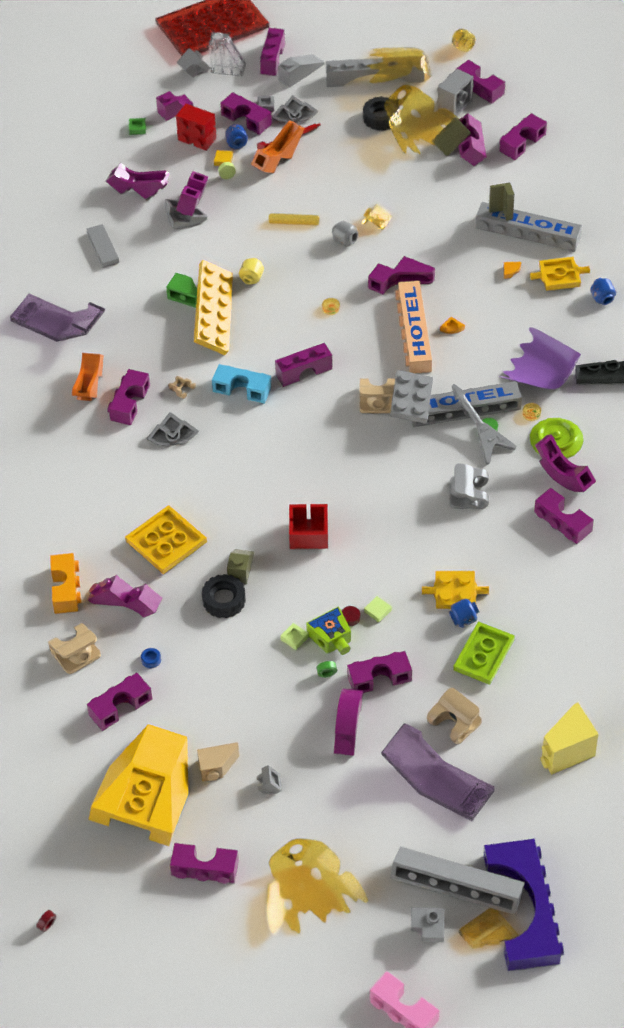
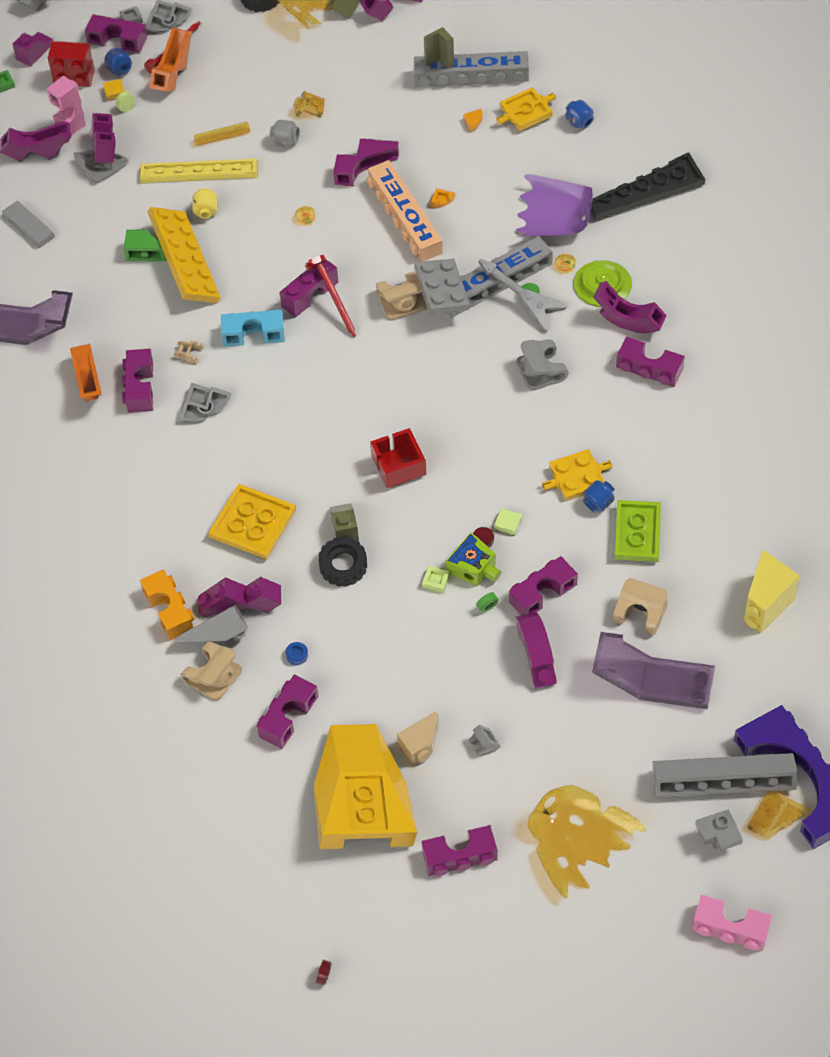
camera: 20 degrees left, 5 degrees up
(100, 614) = (218, 628): none -> light grey slope
(173, 150) = (66, 97): none -> bright pink arch
(261, 243) = (198, 170): none -> light yellow tile
(316, 345) = (319, 263): none -> red piece

